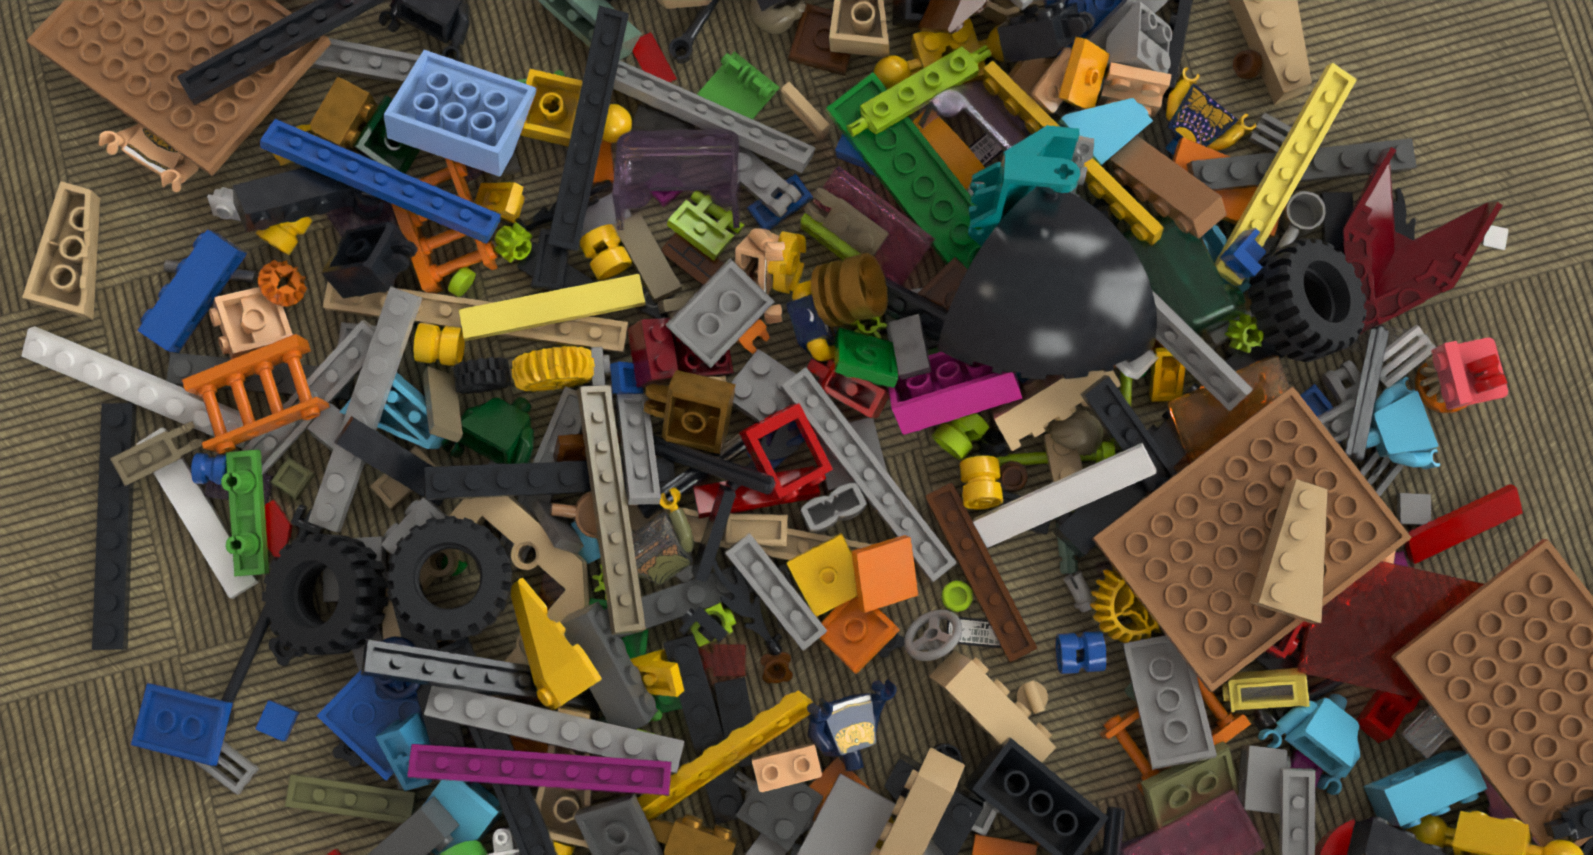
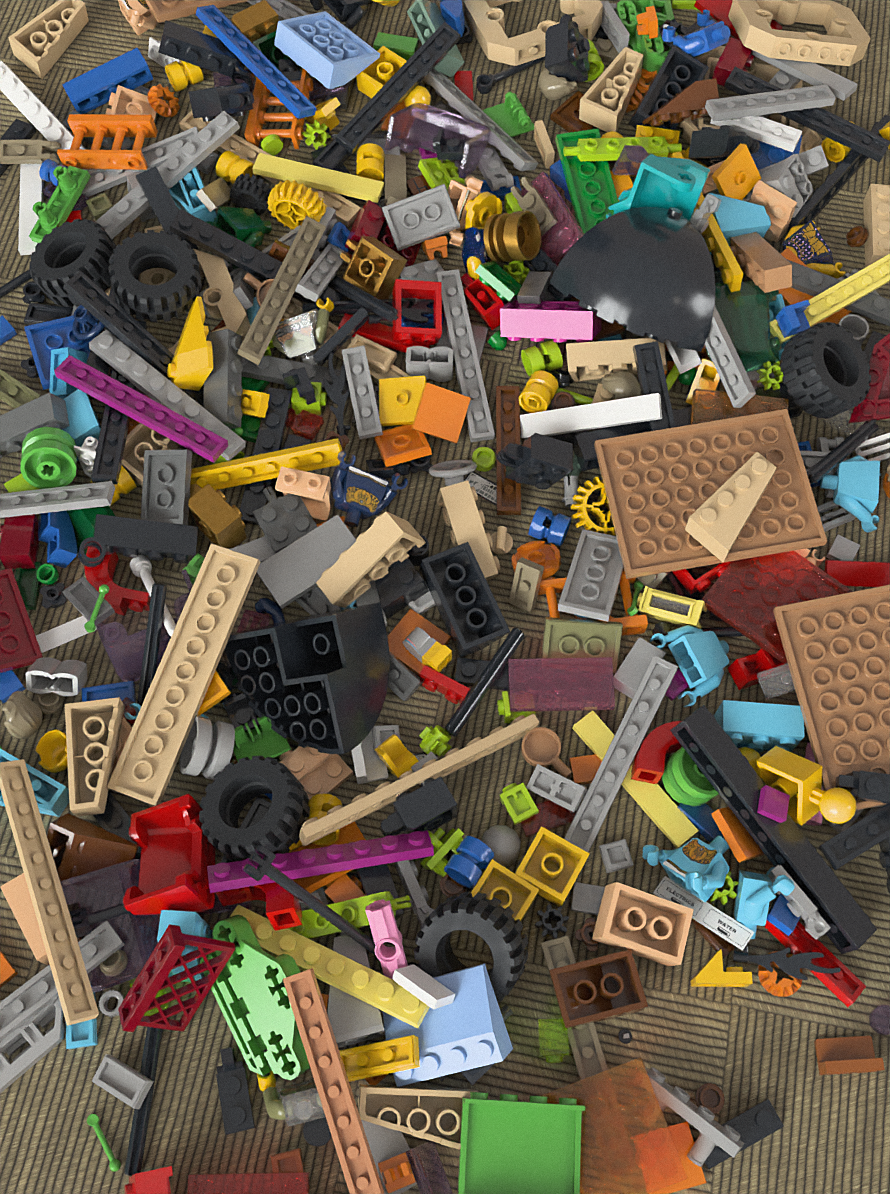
camera: 30 degrees right, 15 degrees down
(323, 671) = (42, 313): none -> black tile
(422, 163) = (289, 69): none -> black bracket
(539, 50) = (401, 45): none -> bright green hinge
(696, 183) = (448, 148): none -> black bracket
(846, 680) = (378, 468): none -> black plate
(891, 429) = (497, 342): none -> green hinge
(1033, 586) = (537, 461): none -> black hinge
(1086, 703) = (540, 553): none -> orange tile
(1094, 745) = (526, 584): none -> dark tan plate
(1225, 716) = (633, 609): none -> bright green hinge

